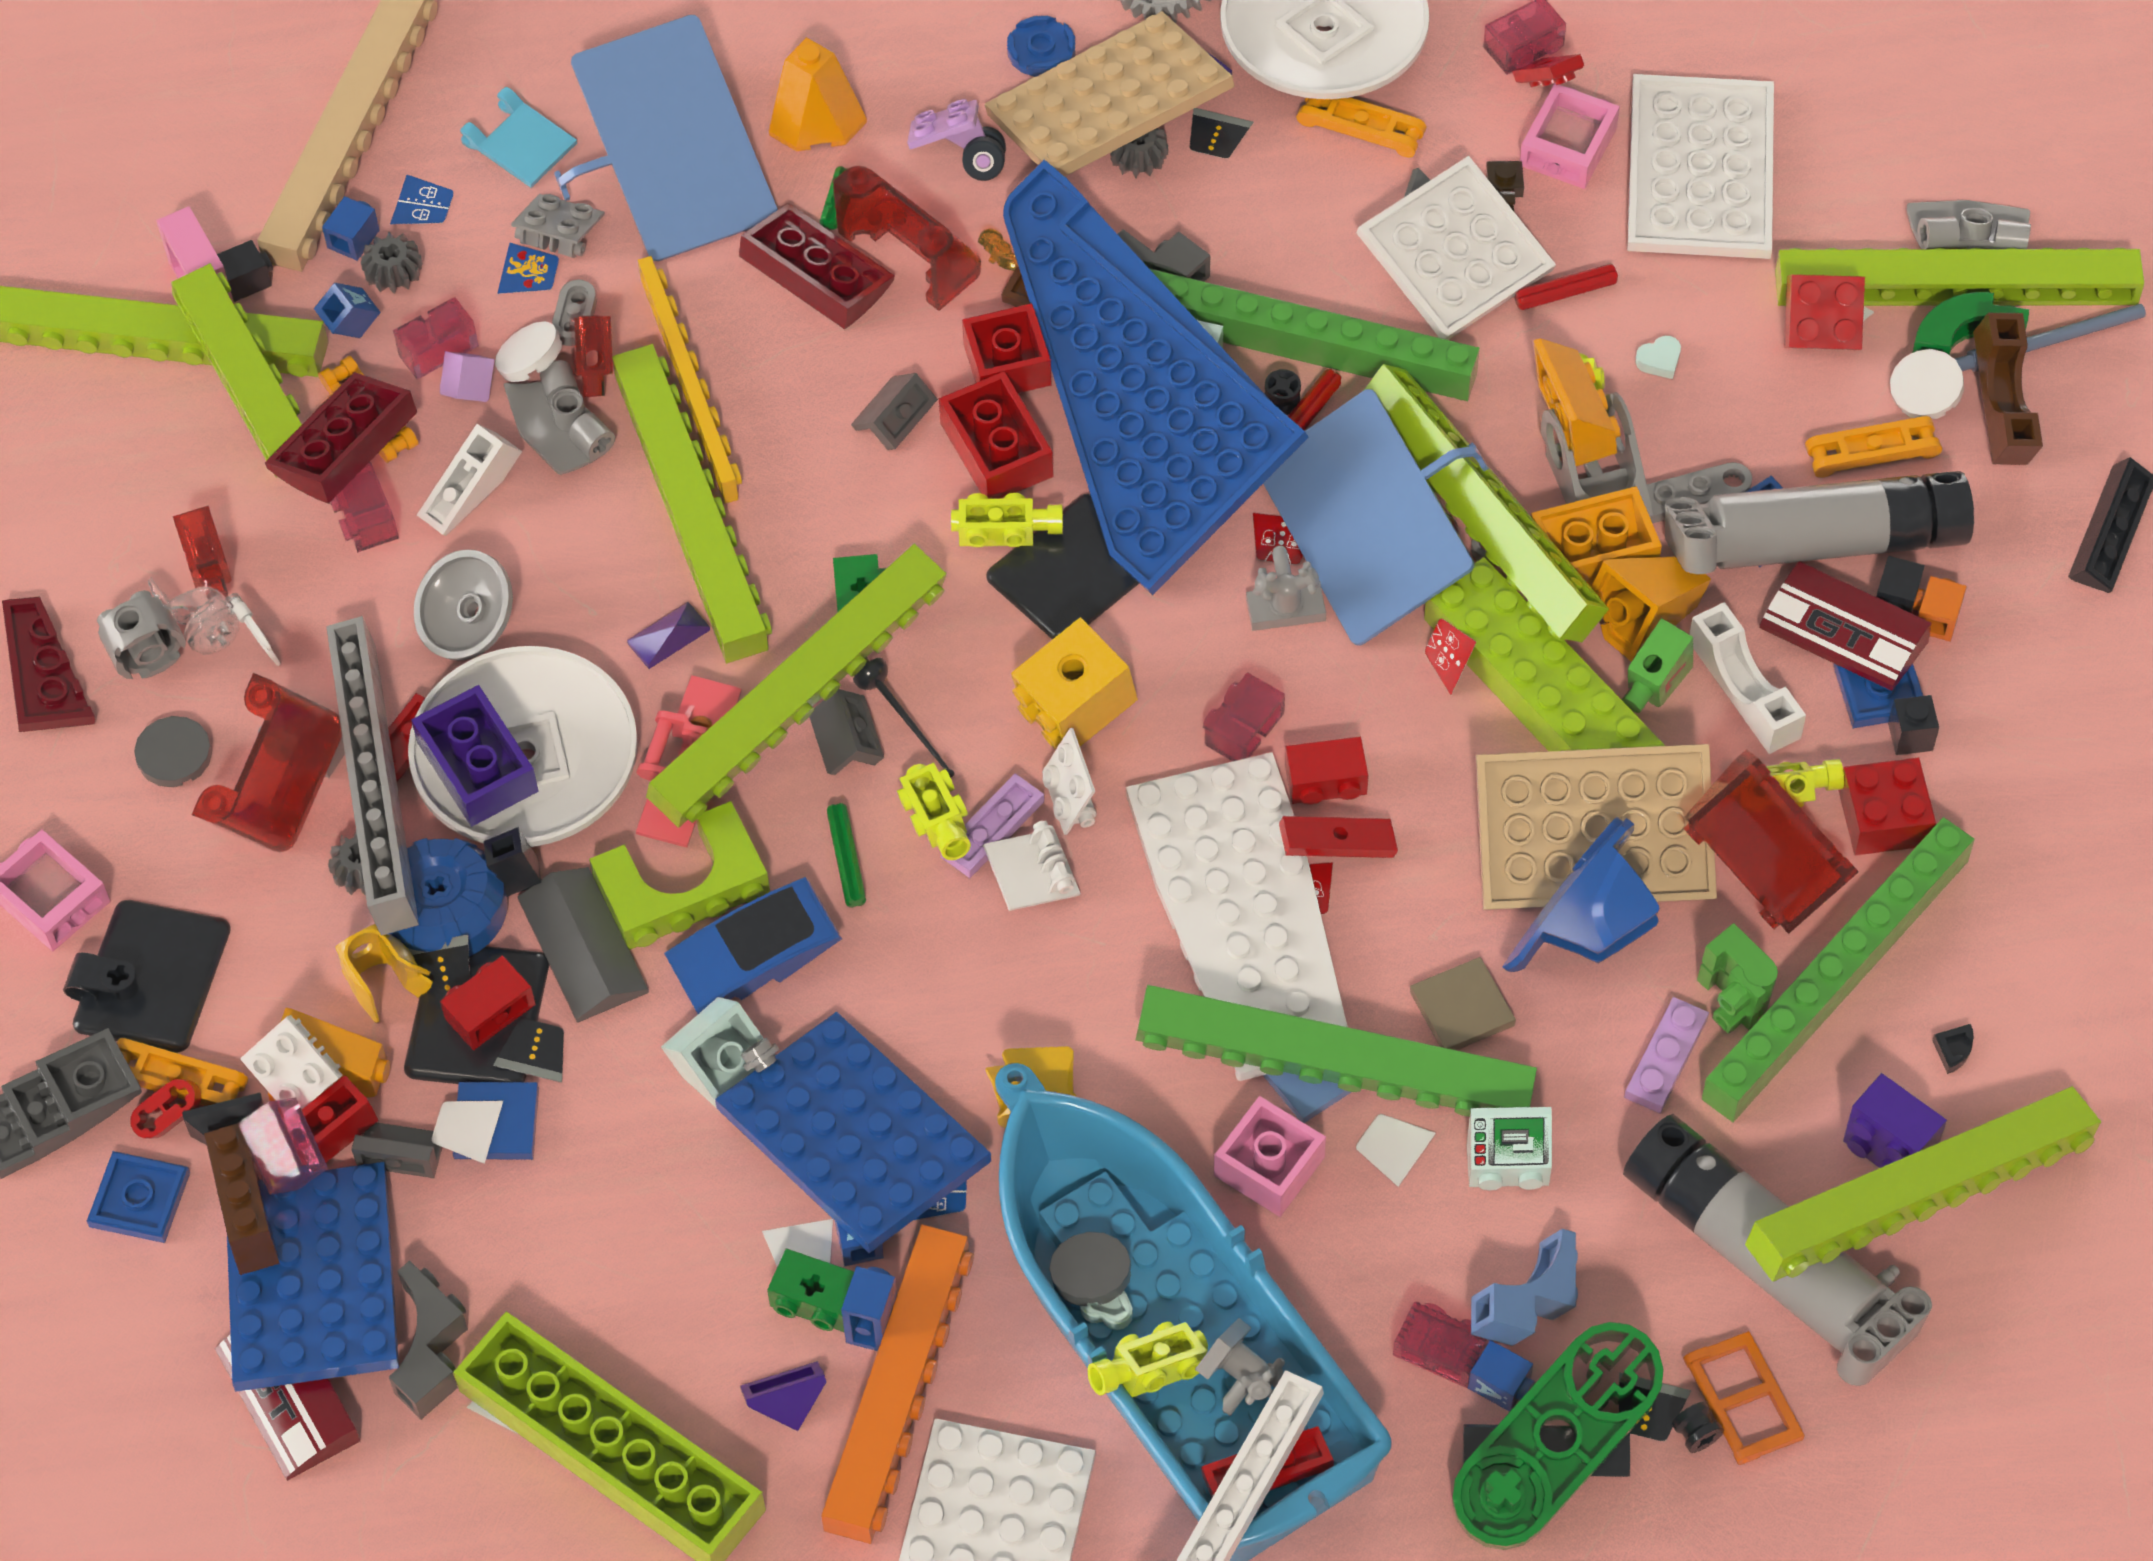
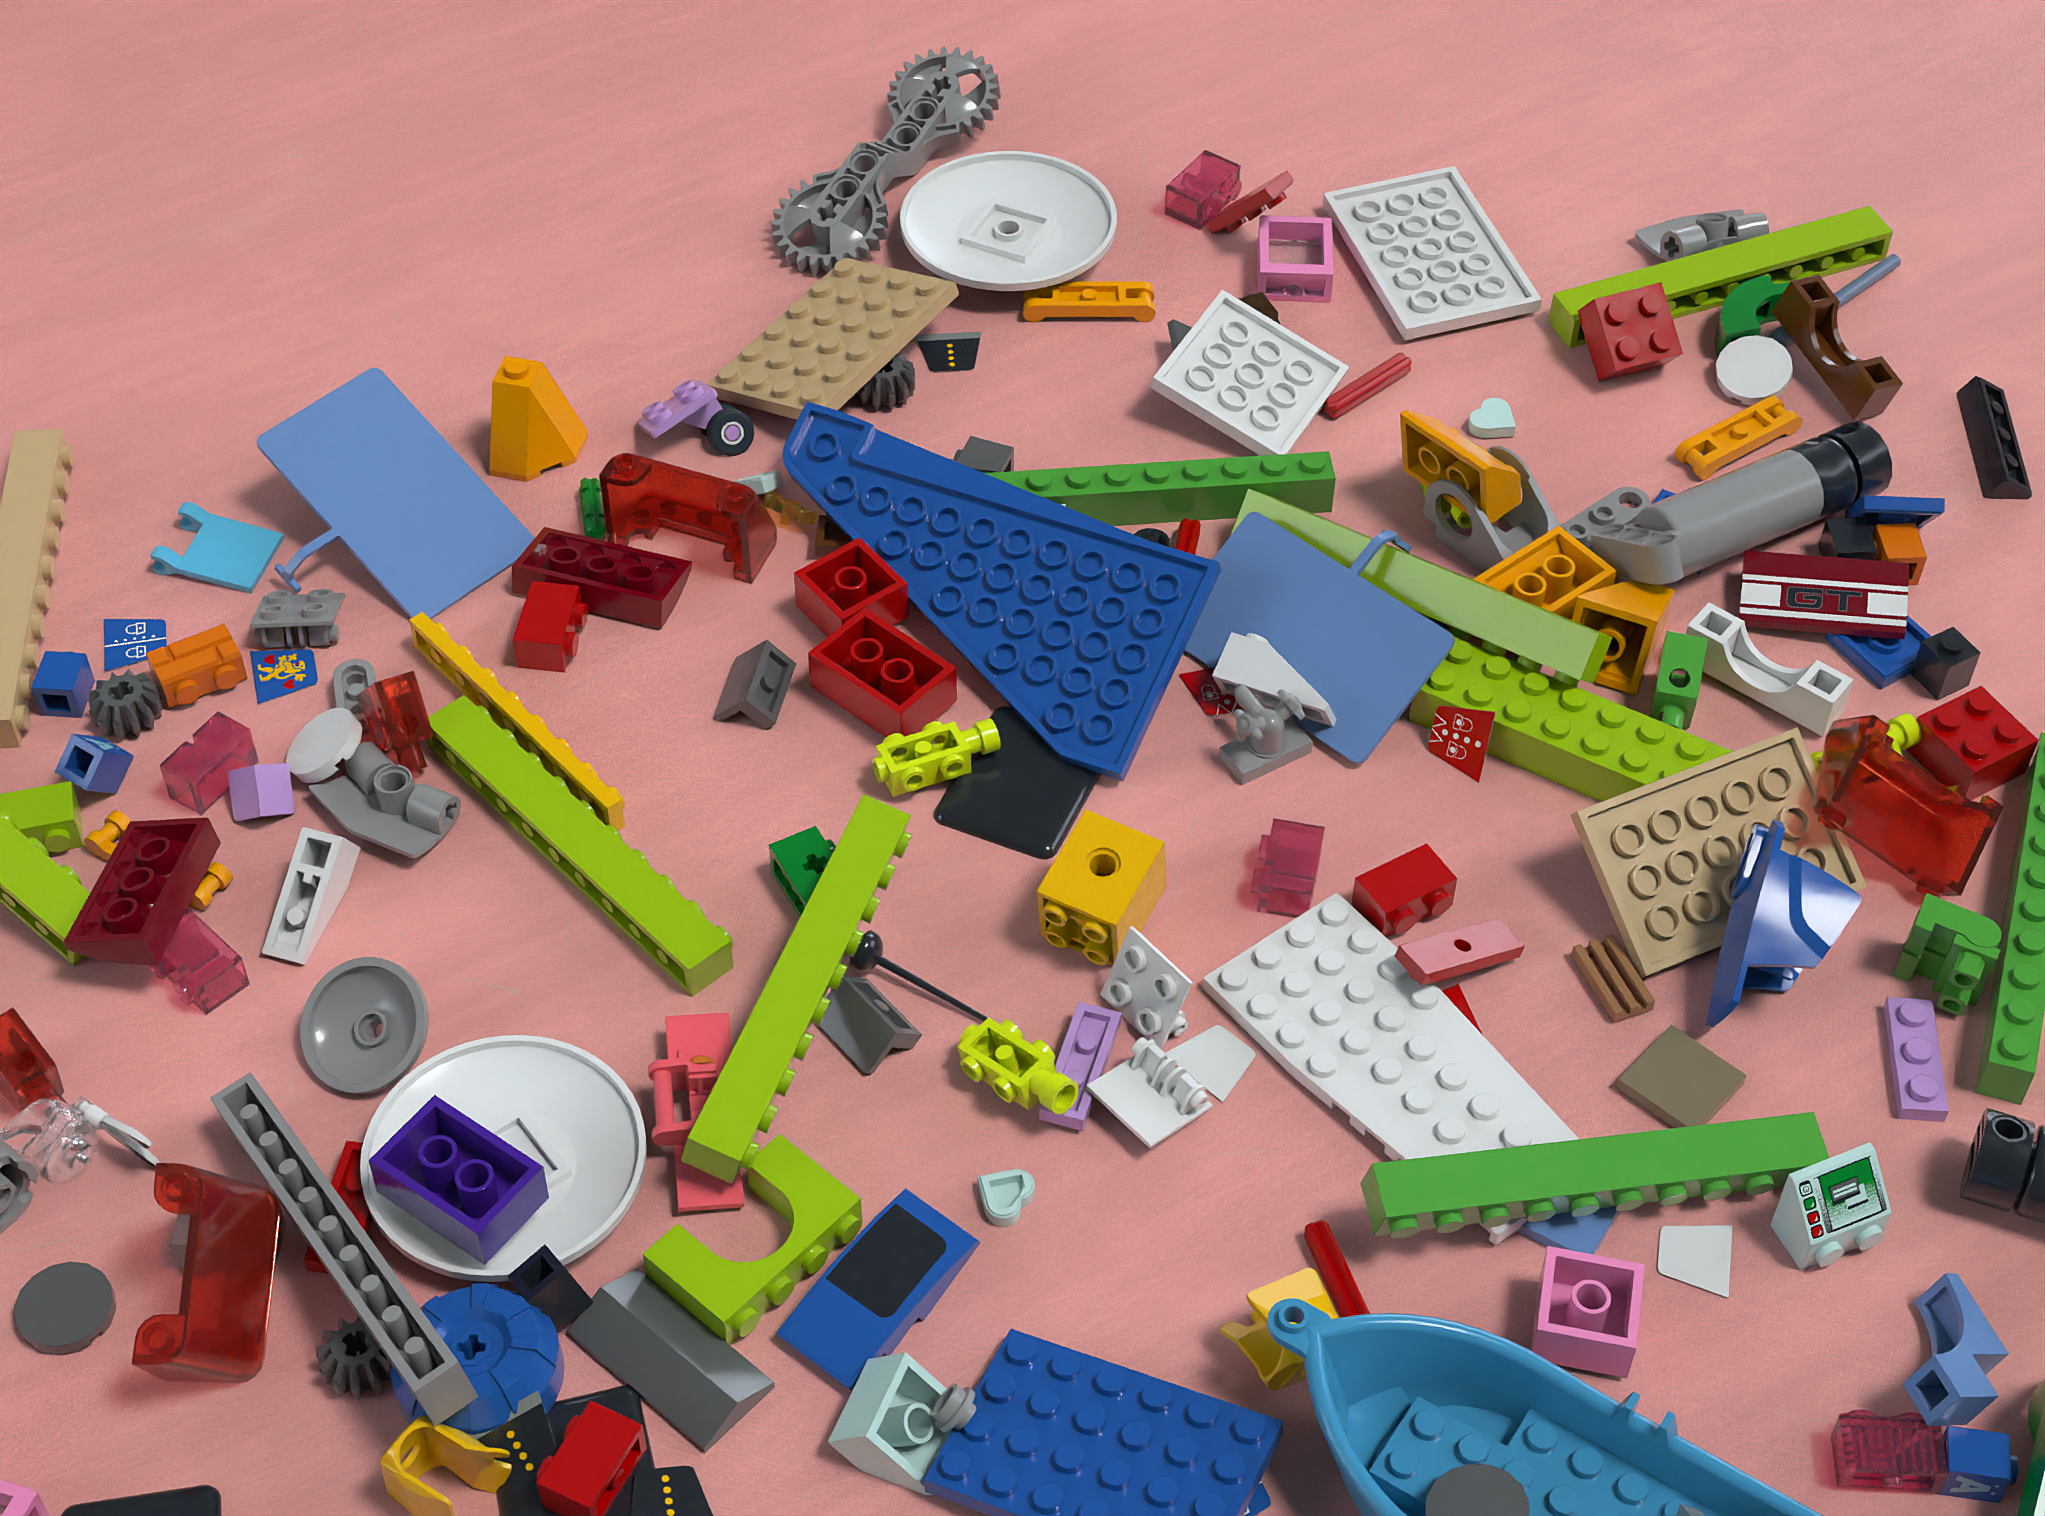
camera: 25 degrees left, 10 degrees down
(459, 246) = (197, 666): none -> orange brick
(668, 635) = (613, 987): slope -> none
(751, 300) = (549, 626): none -> red brick
(846, 855) = (932, 1153): green axle -> none
(885, 907) = (1005, 1195): none -> light aqua tile
(982, 219) = (763, 482): none -> light aqua tile
(1040, 45) = (733, 321): blue tile -> none
(1103, 856) = (1214, 1059): none -> white sticker
(1103, 1059) = (1334, 1269): none -> red axle
(1311, 539) = (1260, 668): none -> white slope
(1458, 874) = (1619, 974): none -> medium nougat tile
(1956, 568) = (1896, 509): none -> blue tile

